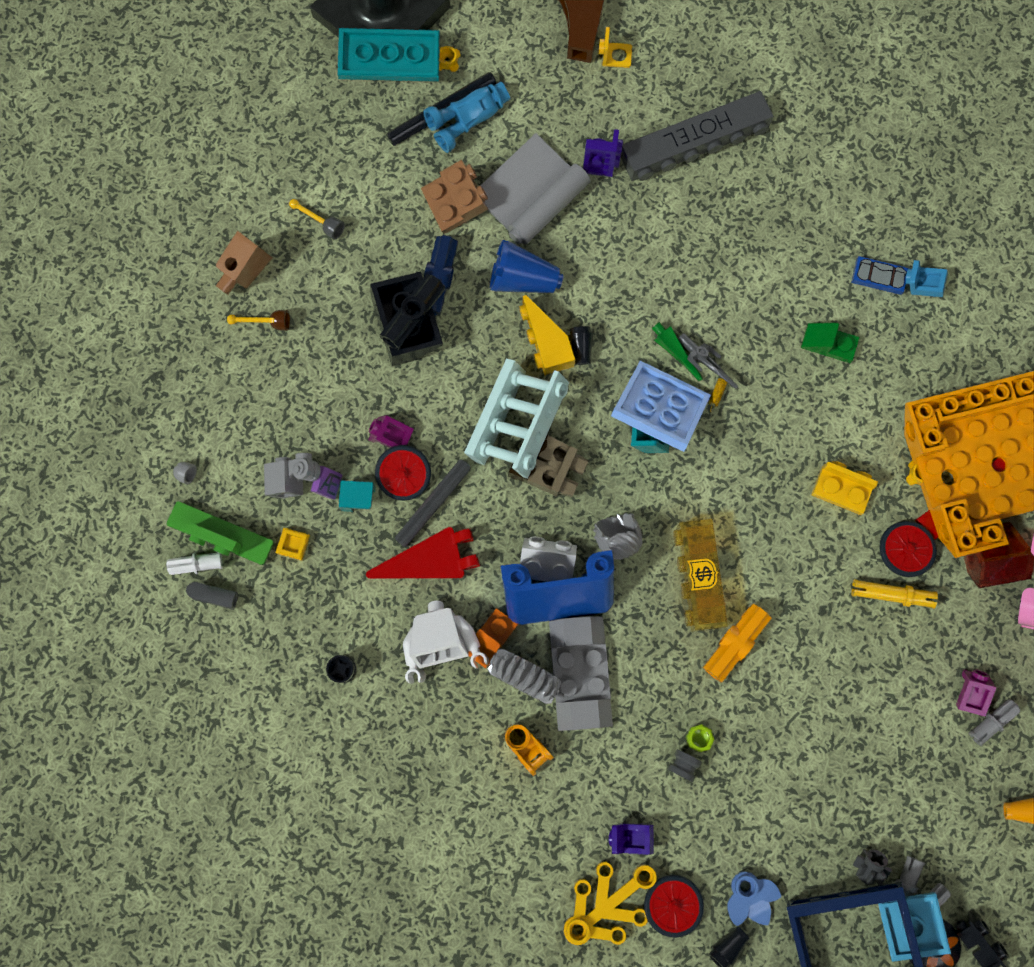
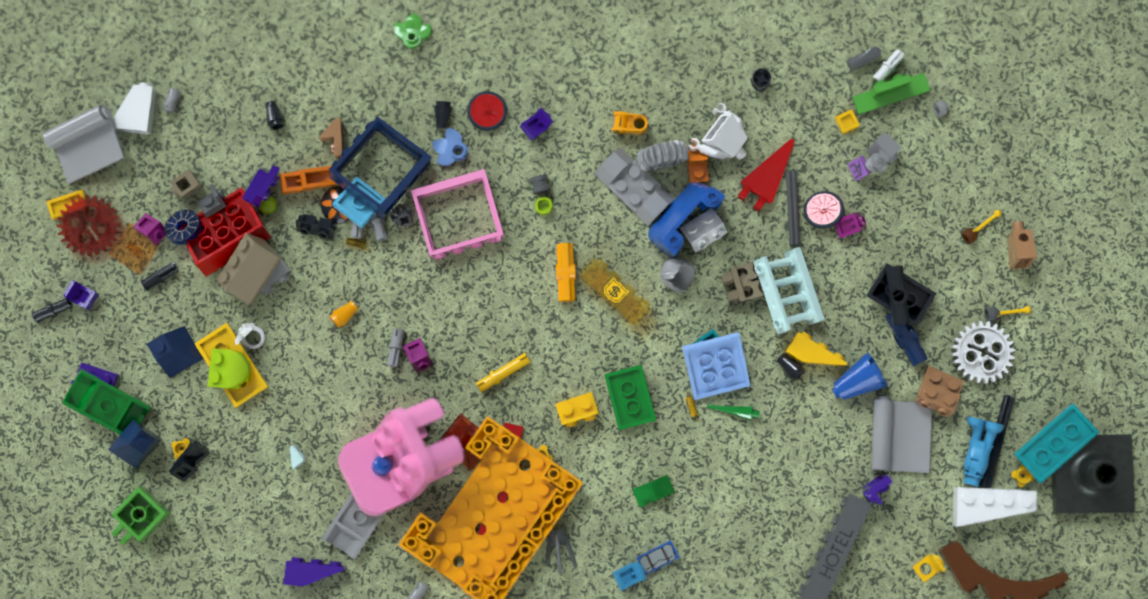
camera: 145 degrees right, 5 degrees up
(354, 206) = (989, 336): none -> white gear
(356, 495) = (837, 174): teal panel -> none
(507, 56) = (981, 505): none -> white wedge
(606, 906) = (521, 81): yellow plant -> none
(701, 355) = (720, 418): dark grey piece -> none
(777, 453) = (630, 397): none -> green plate
(854, 833) = (451, 184): none -> bright pink window
(908, 549) = (515, 405): red wheel -> none
(948, 882) = (356, 243): none -> clear yellow piece
(974, 374) = (557, 538): none -> dark grey plant

